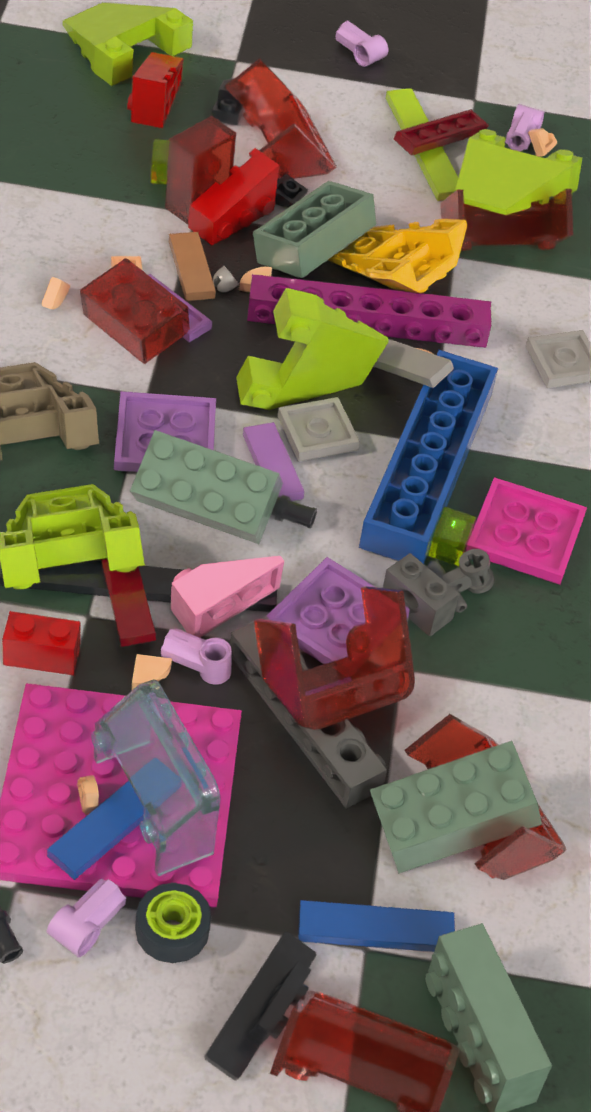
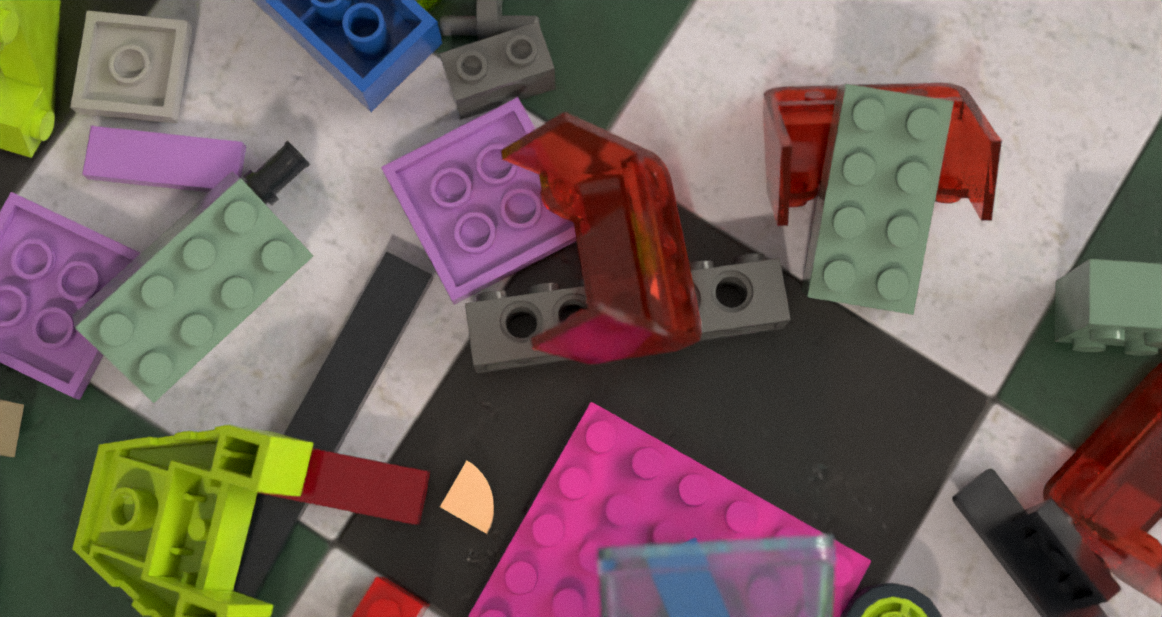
camera: 60 degrees left, 30 degrees up
(208, 656) = (471, 426): lavender piece -> none
(222, 590) = (408, 359): bright pink slope -> none
(372, 925) = (975, 374): blue tile -> none

